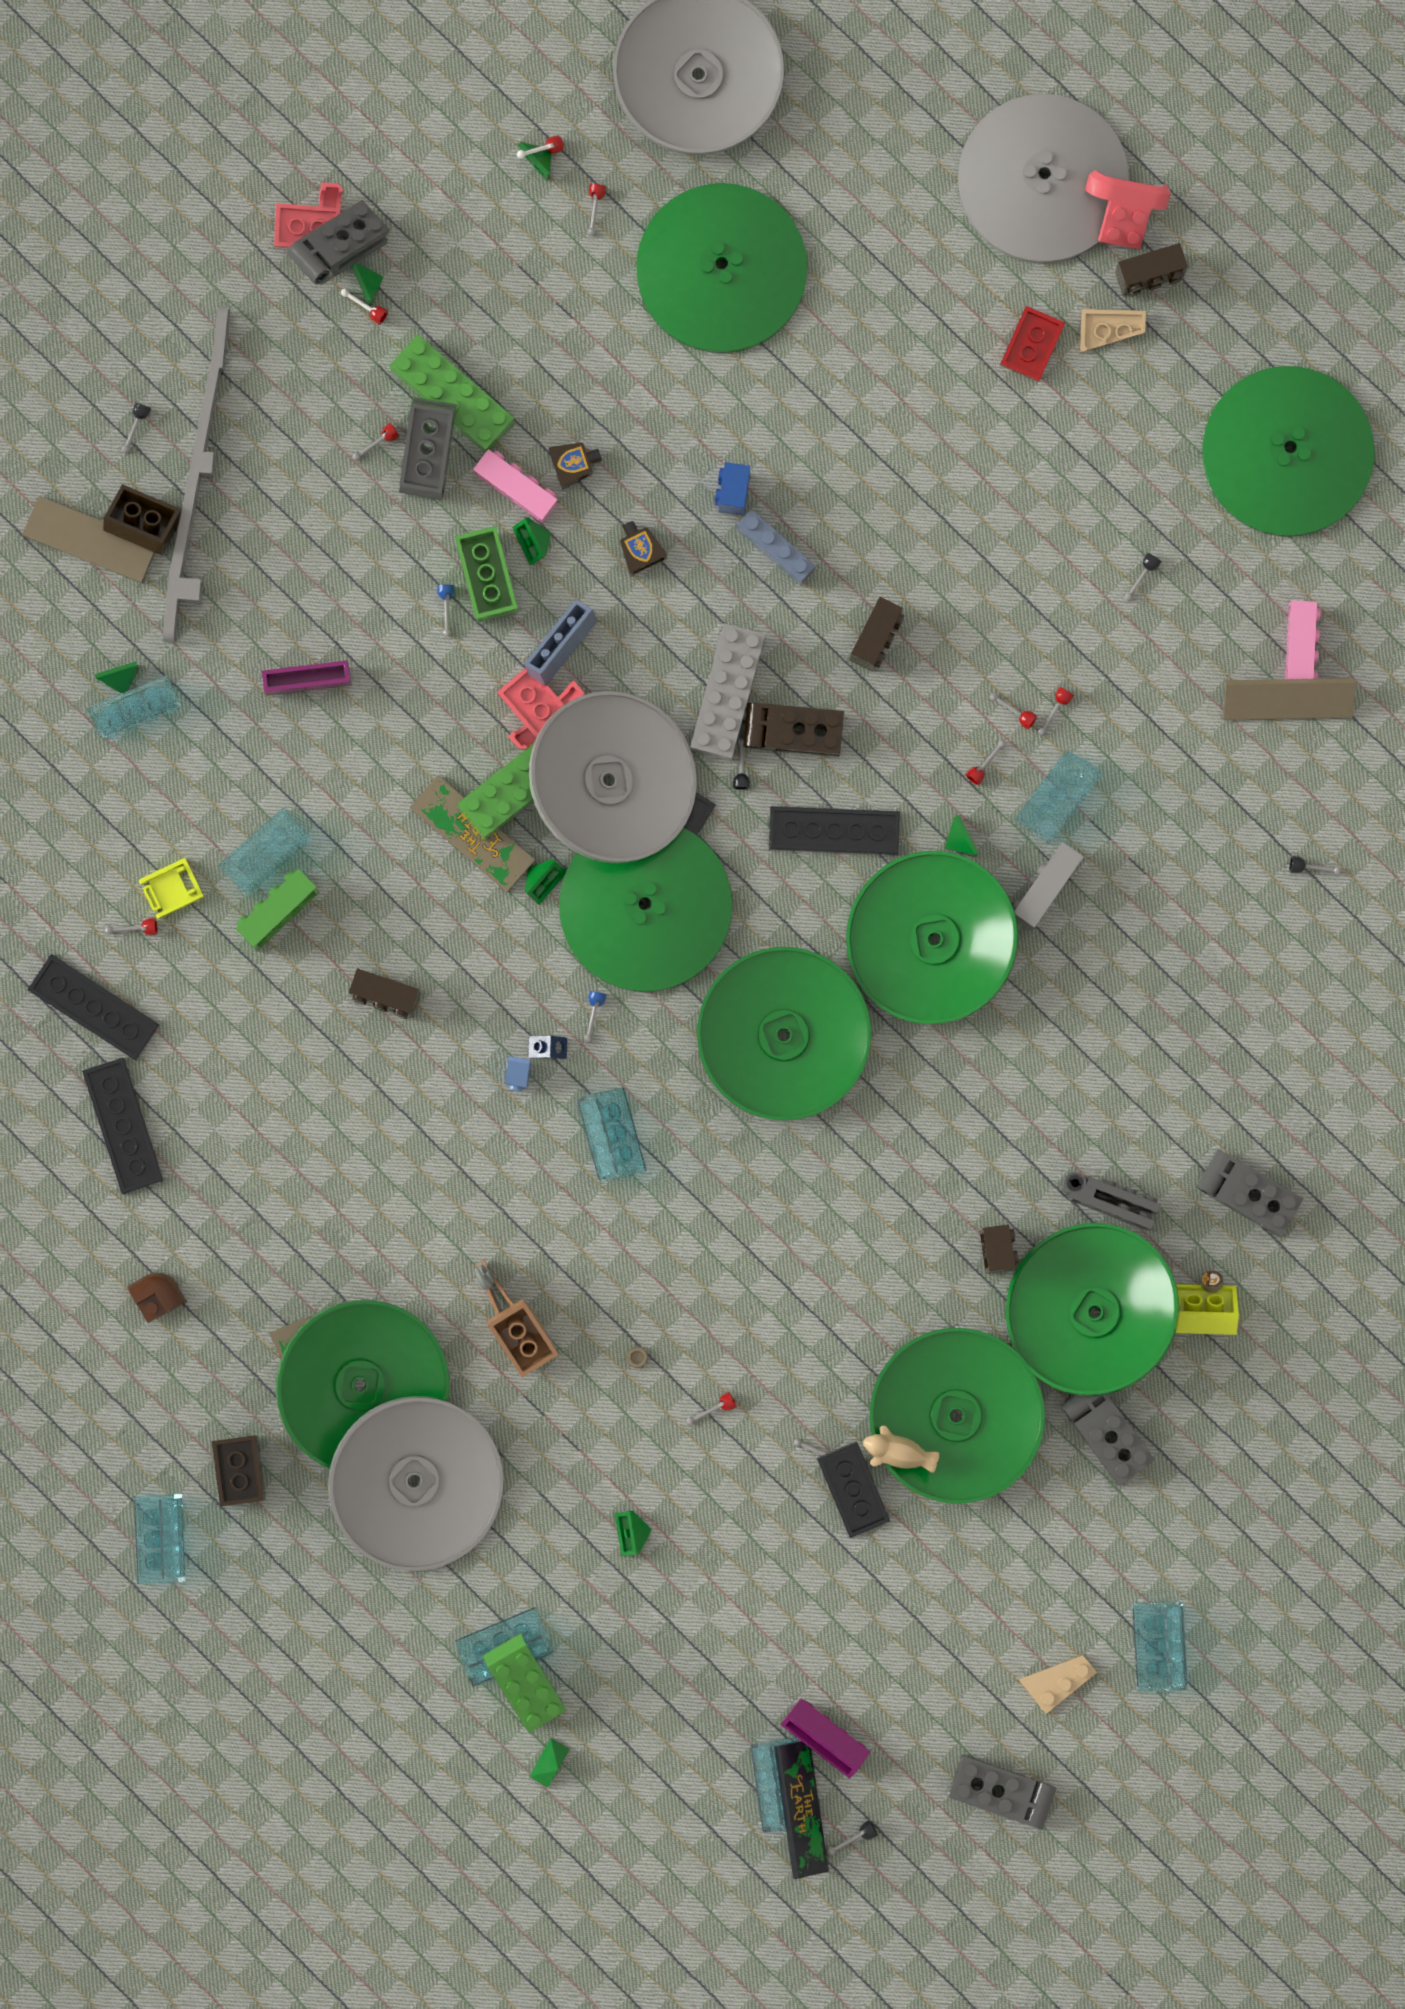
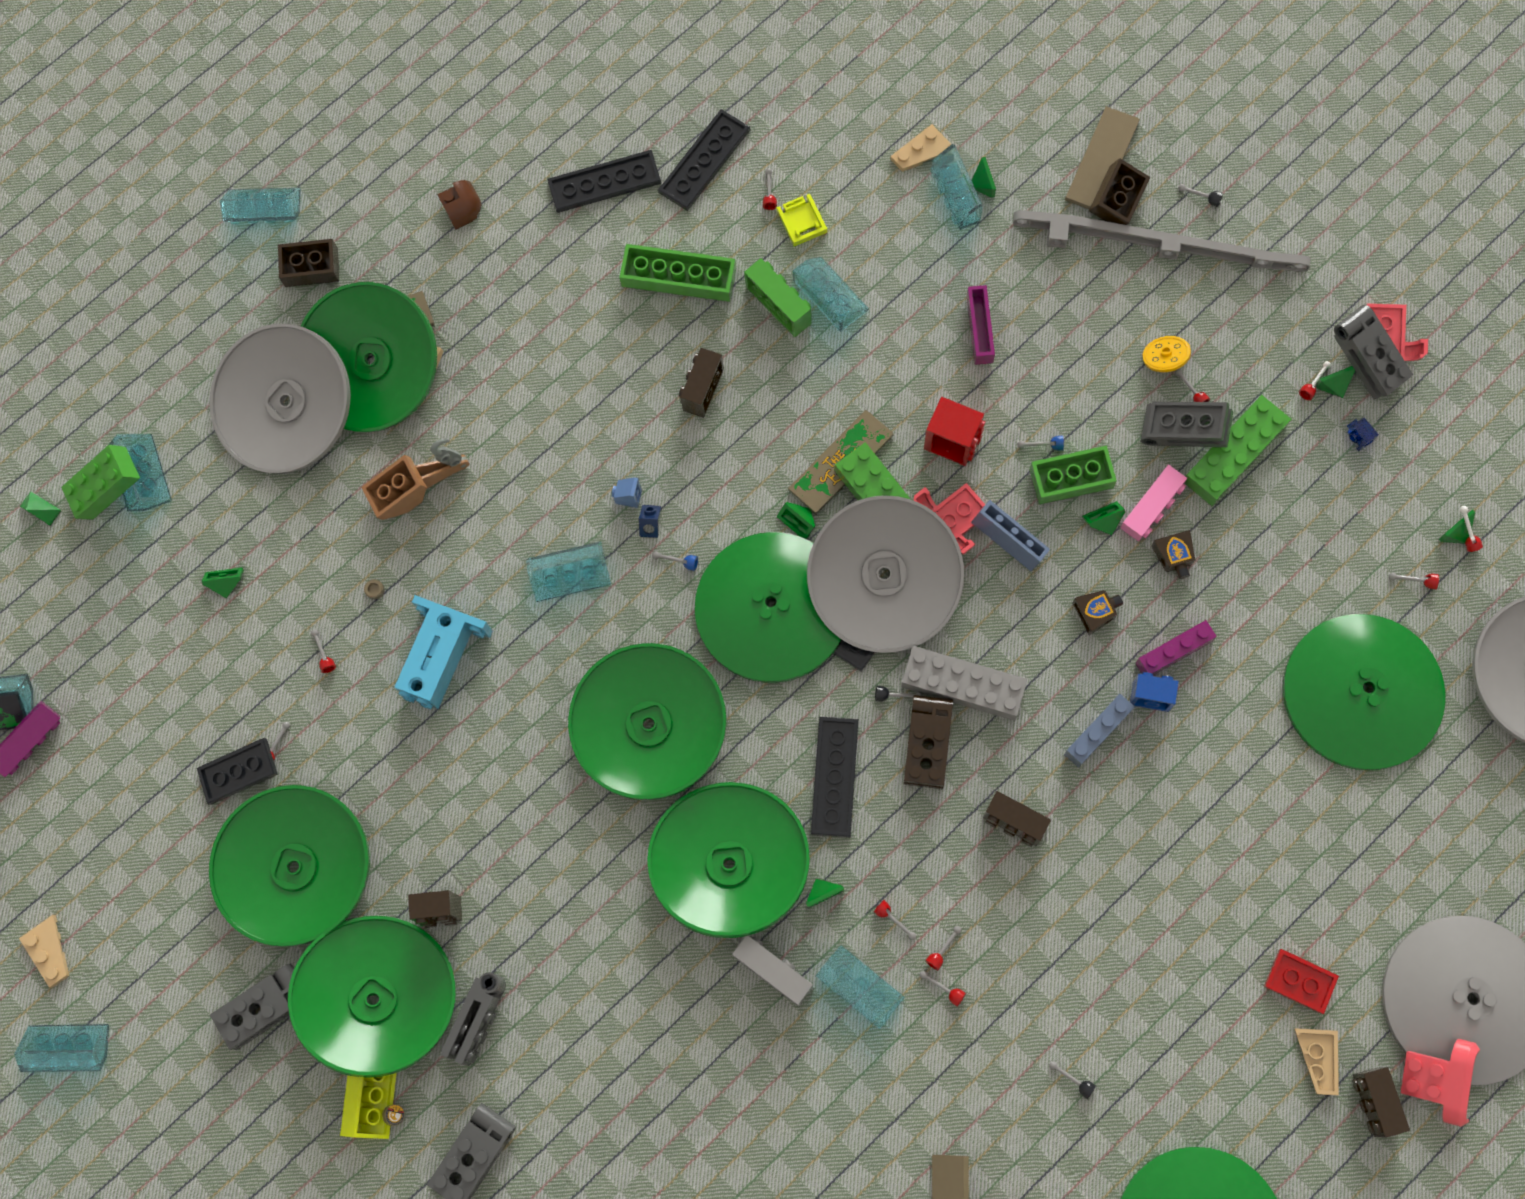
camera: 100 degrees right, 10 degrees down
(78, 749) = (920, 149): none -> tan wing
(246, 1028) = (678, 272): none -> bright green brick
(338, 469) = (1166, 354): none -> yellow shield
(428, 258) = (1361, 433): none -> clear blue brick
(442, 704) = (954, 431): none -> red container
(683, 465) = (1176, 649): none -> magenta brick
(712, 1274) = (436, 652): none -> medium azure brick
(898, 1451) = (260, 809): tan animal -> none

